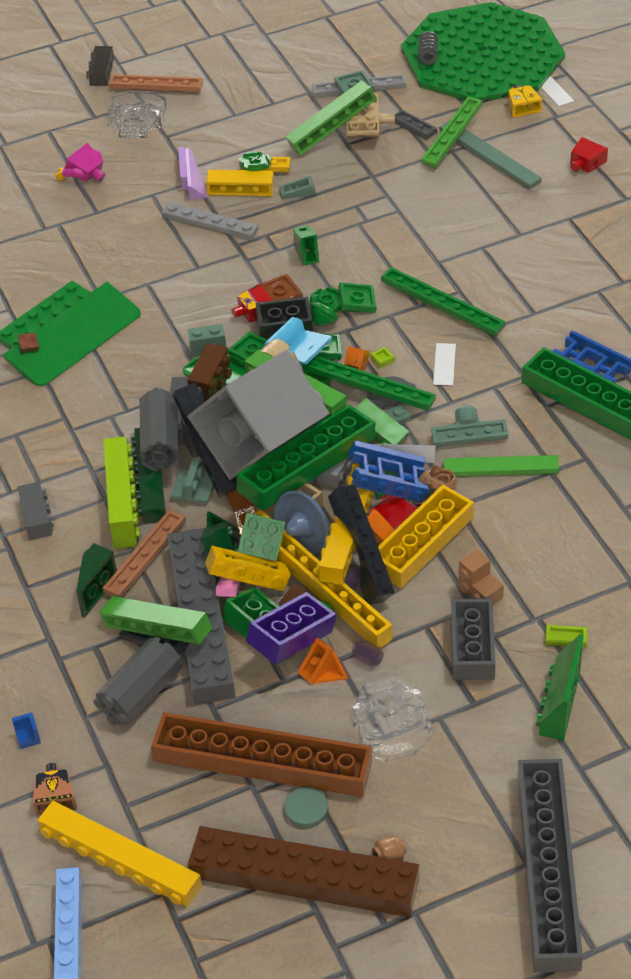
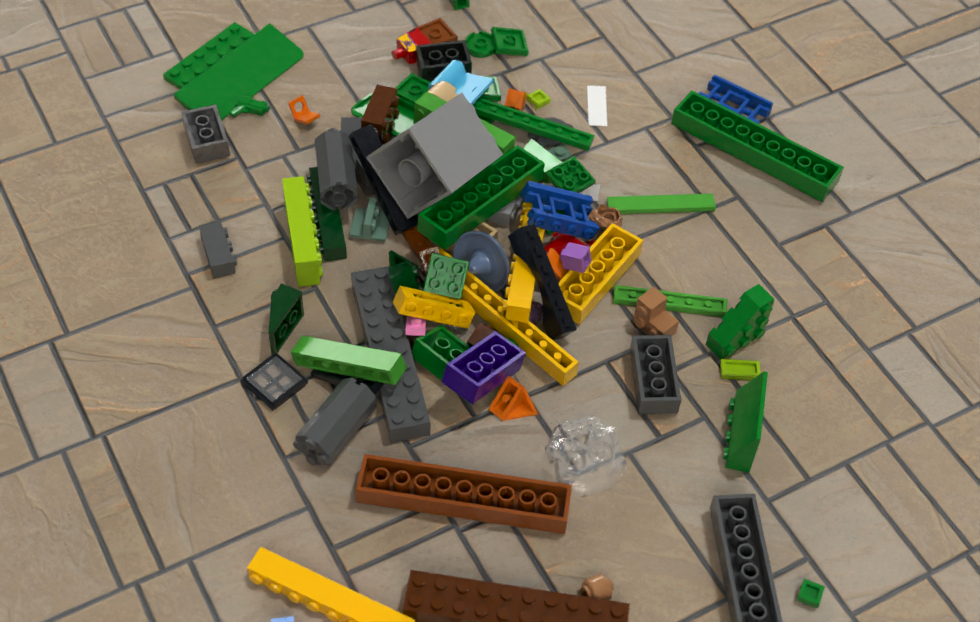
camera: 10 degrees left, 5 degrees up
(26, 730) = (227, 473): blue panel -> none
(28, 342) = (197, 82): copper tile -> none
(32, 394) = (205, 134): none -> flat silver brick
(53, 786) = (259, 532): torso -> none
(80, 365) = (248, 104): none -> green piece
(81, 642) = (274, 381): none -> clear piece
(136, 376) = (303, 116): none -> orange bracket
(143, 554) = (328, 293): nougat plate -> none
(201, 336) = (366, 79): sand green brick -> none
(306, 807) = (510, 545): sand green tile -> none
(322, 314) = (479, 57): green hat -> none
(367, 653) = (555, 389): brick -> none
(399, 519) = (575, 257): none -> medium lavender brick
(404, 436) = (570, 176): none -> green tile
(443, 301) = (590, 46): green plate -> none
(469, 429) = (628, 168): sand green plate -> none
(507, 566) = (675, 301): none -> bright green tile
(570, 588) = (742, 323): none -> green brick
(613, 861) = (810, 593): none -> green plate

